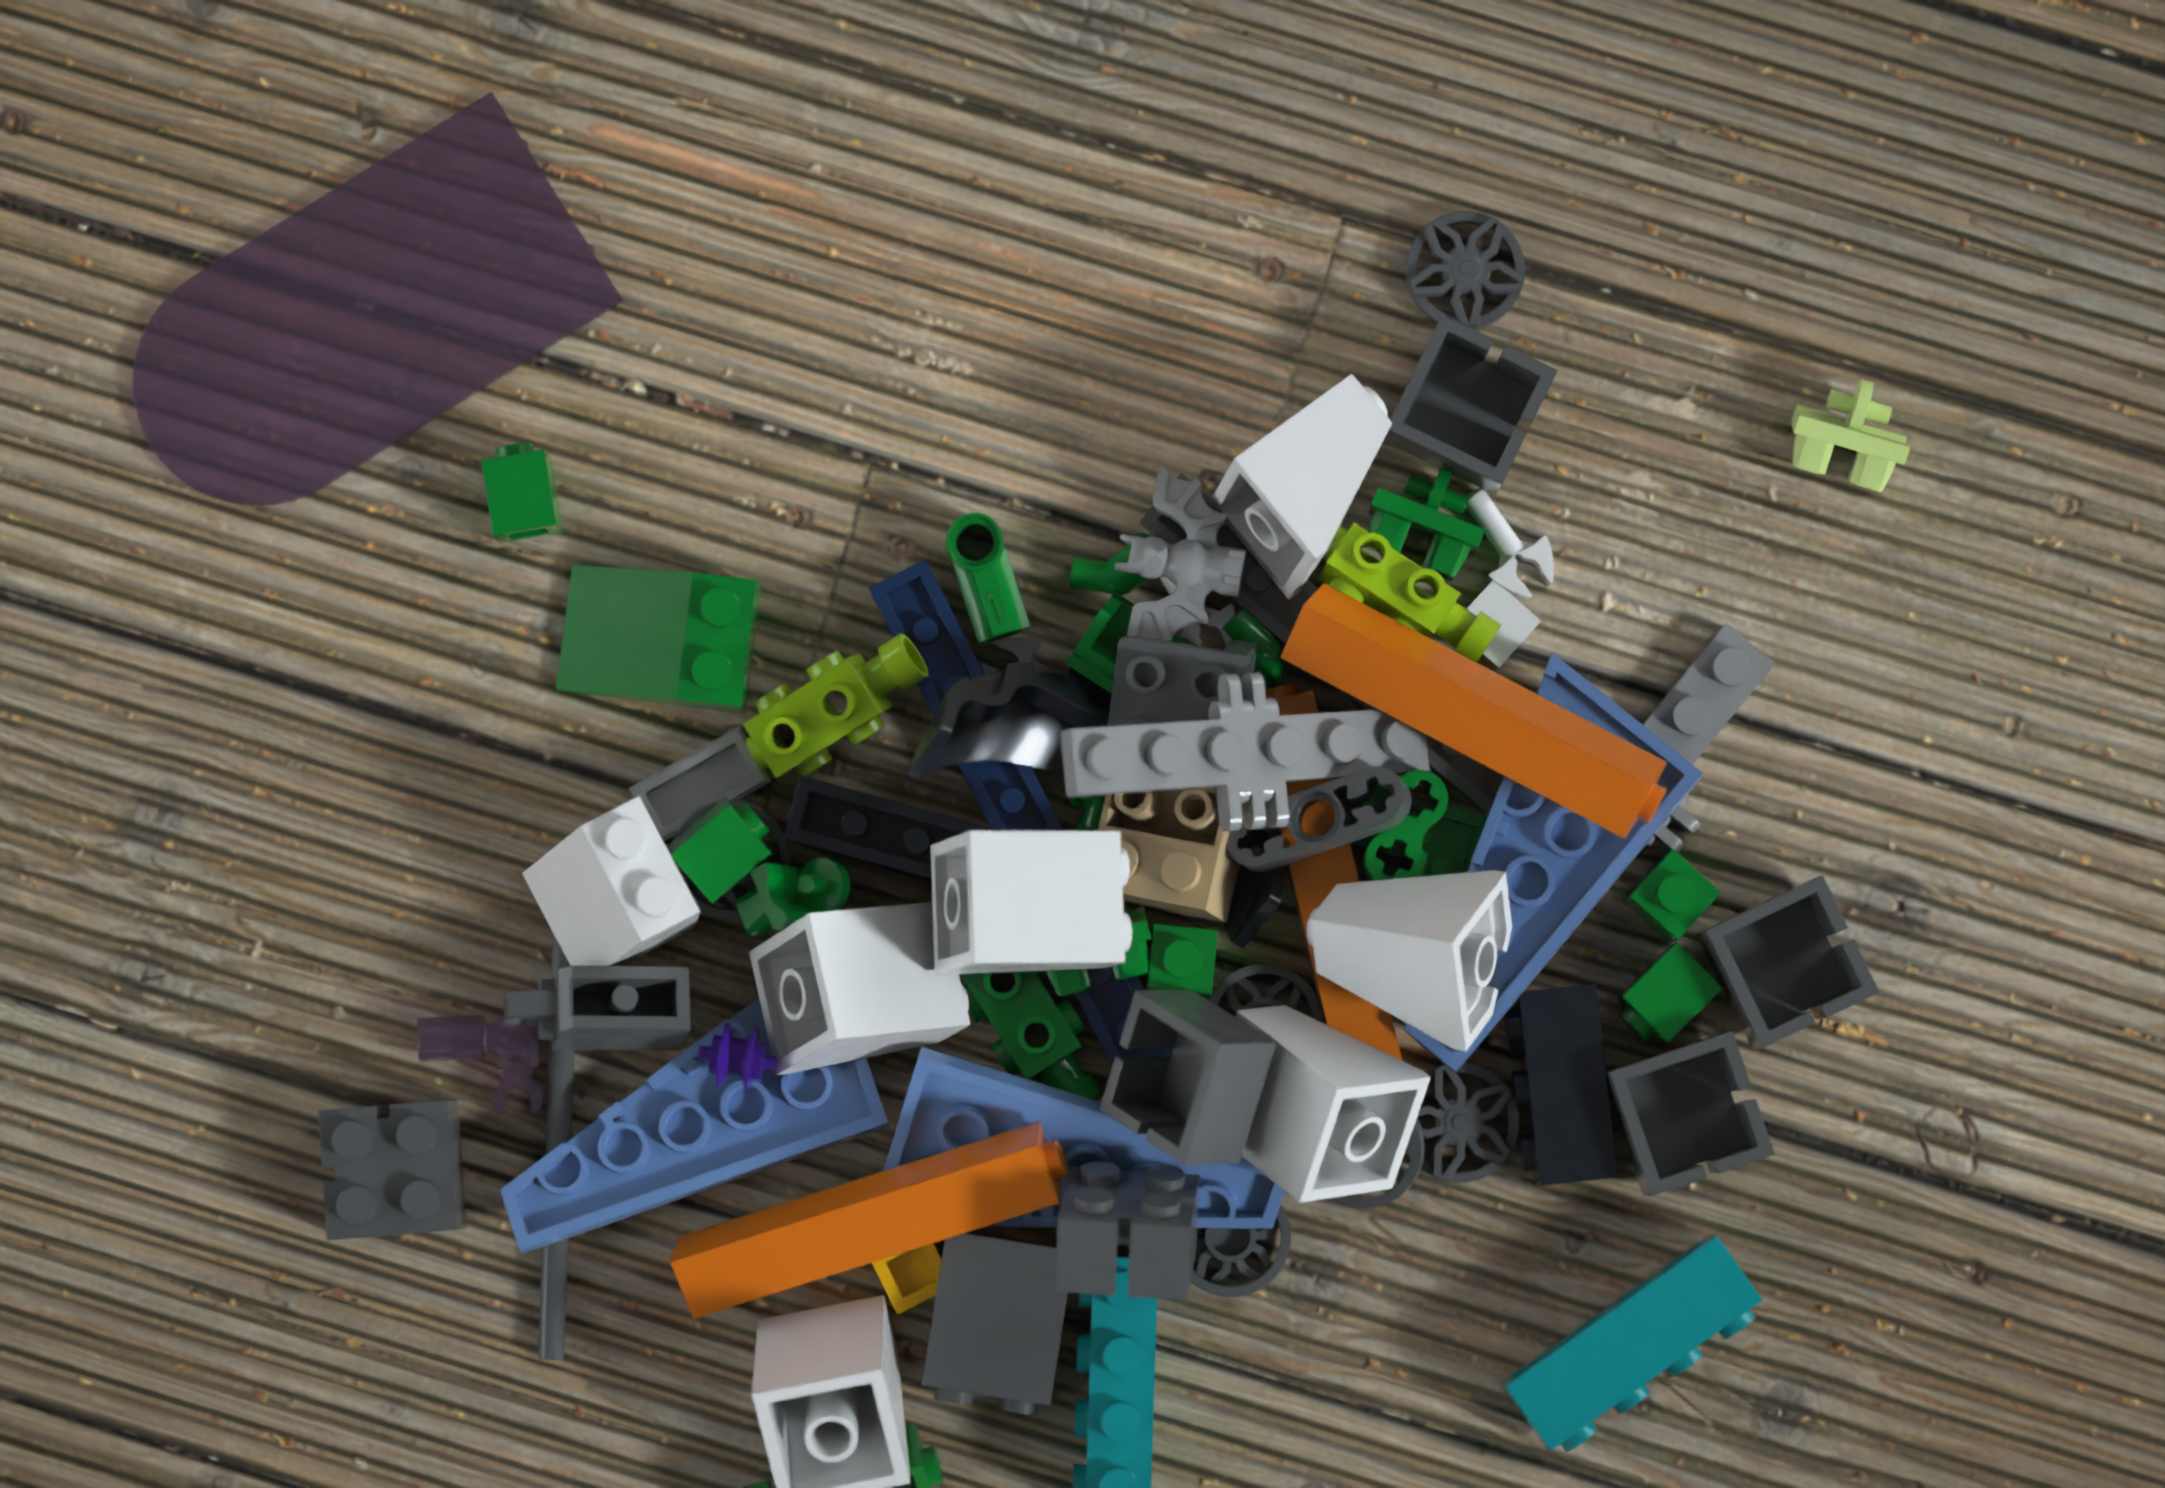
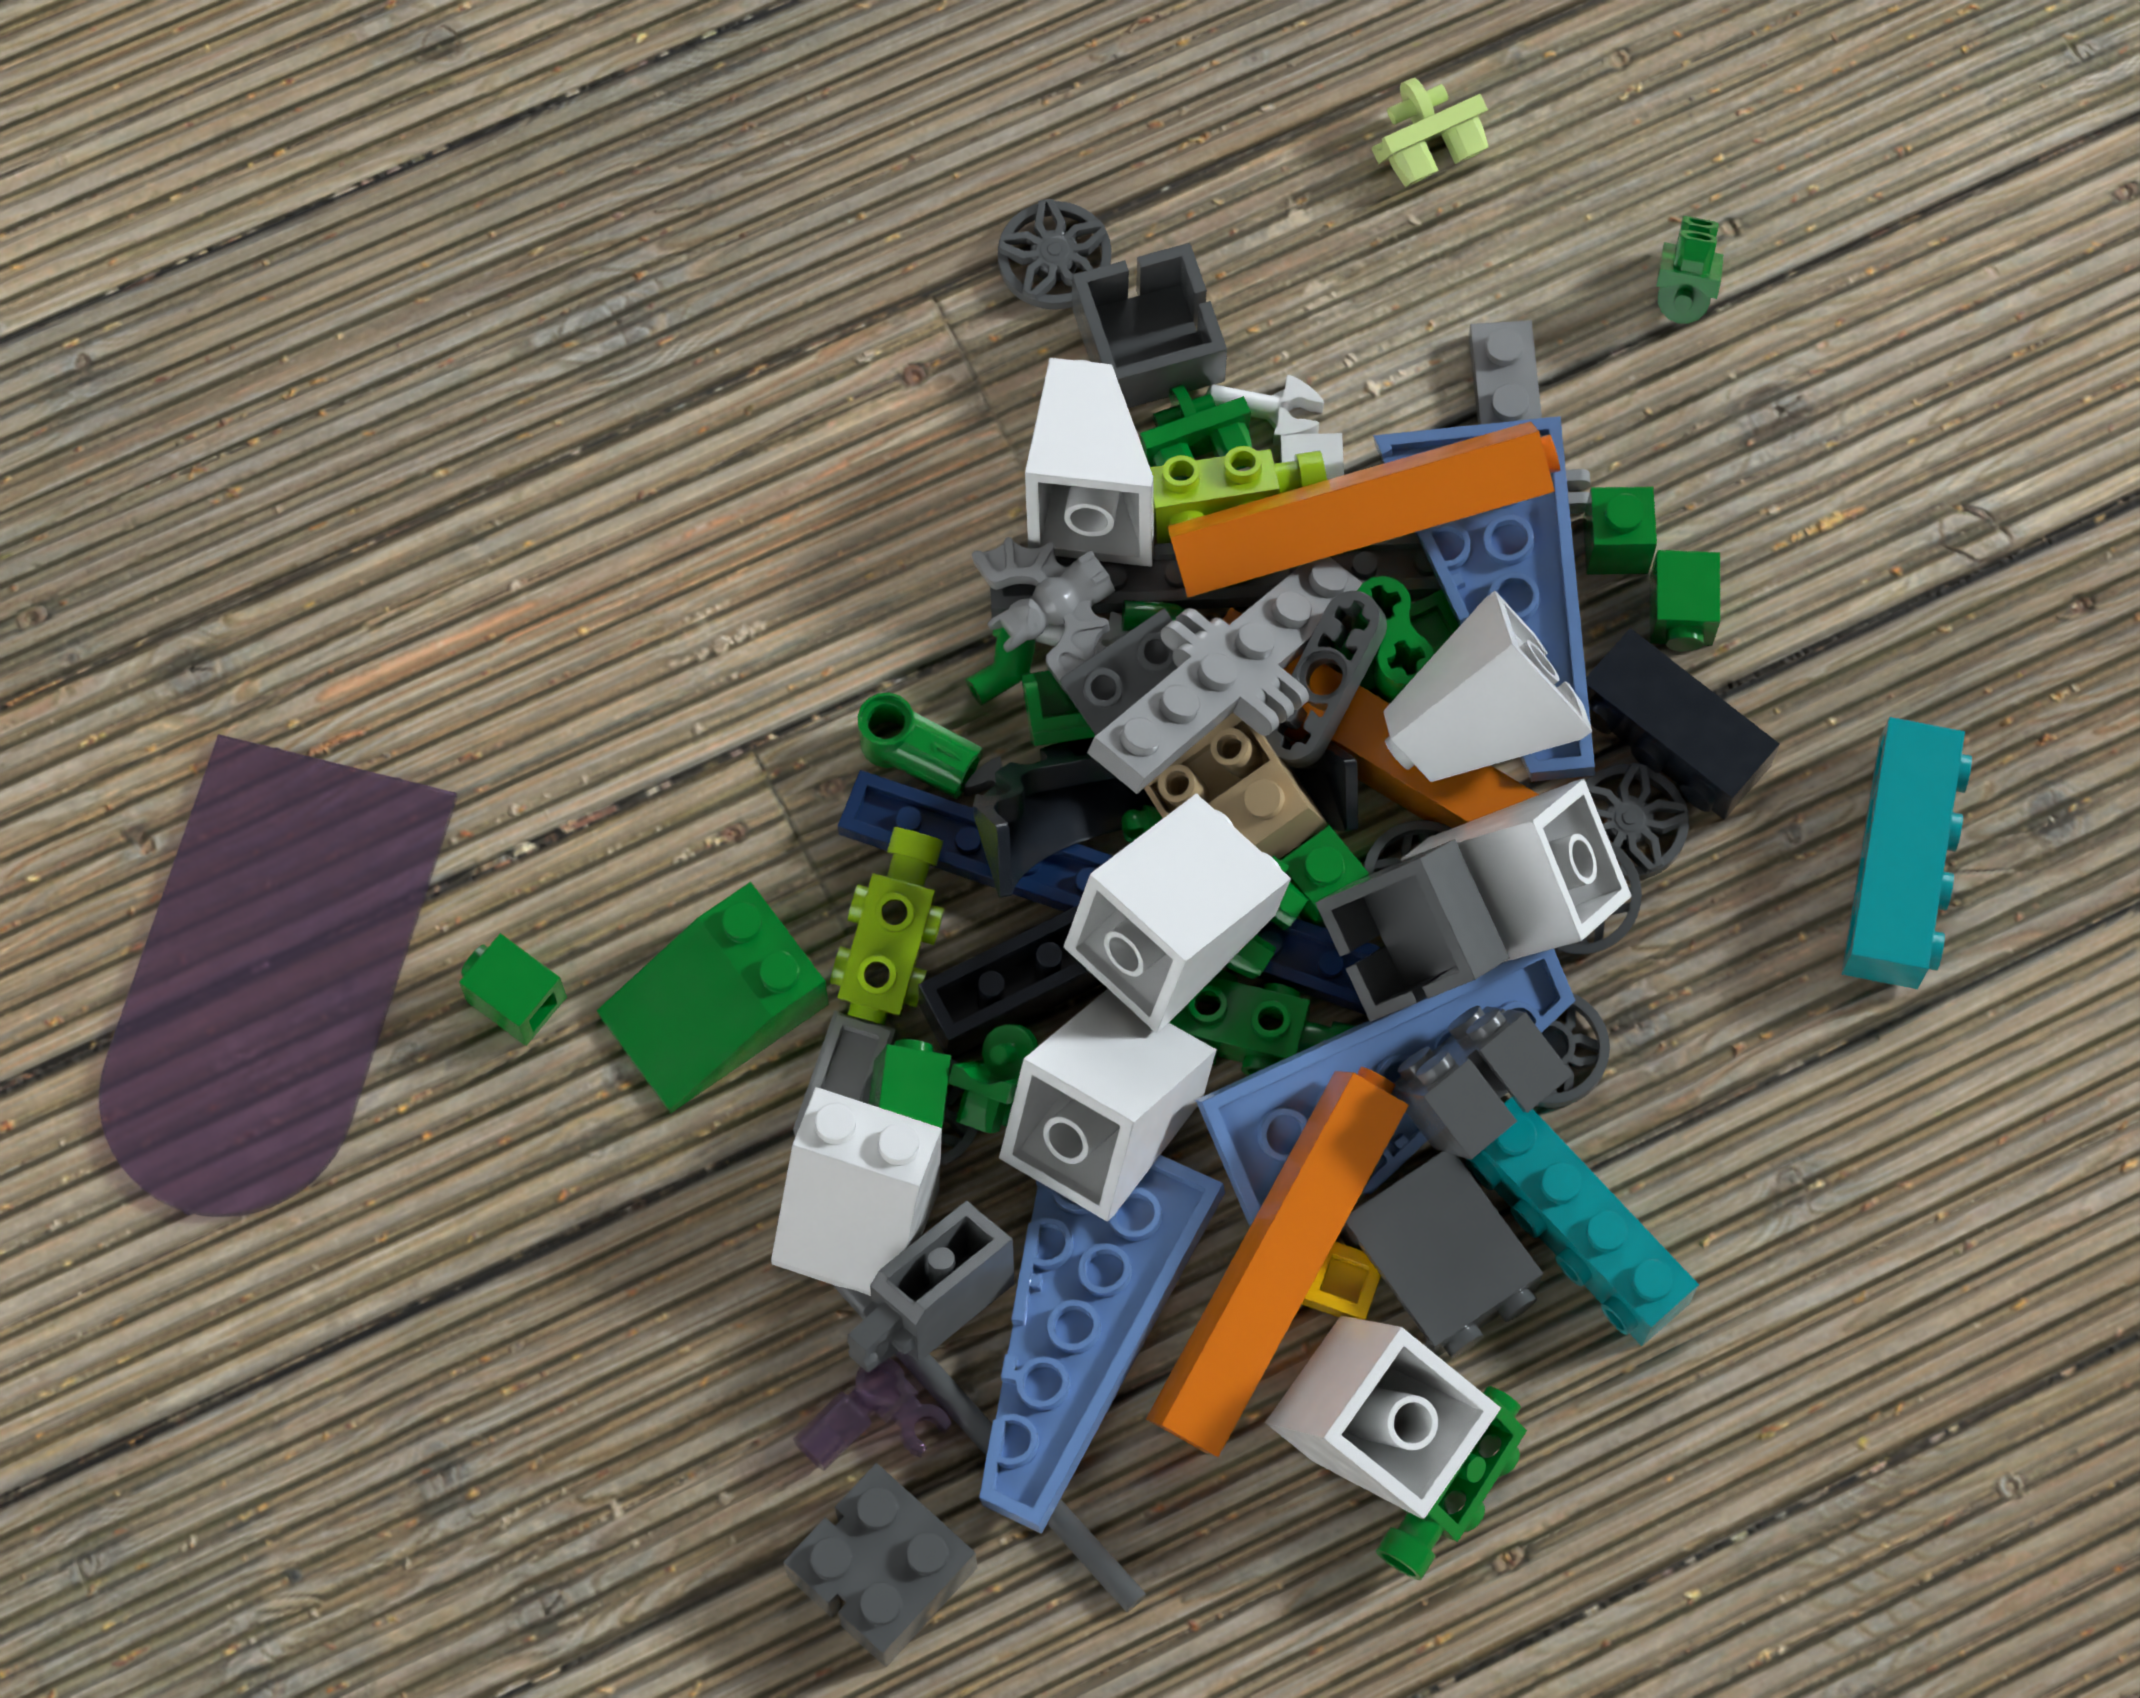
camera: 45 degrees left, 15 degrees down
(737, 1057) = (1066, 1232): dark purple wheel -> none
(1682, 1113) = (1777, 671): dark grey piece -> none
(1781, 963) = (1742, 509): dark grey piece -> none
(1935, 737) = (1689, 271): none -> green hips

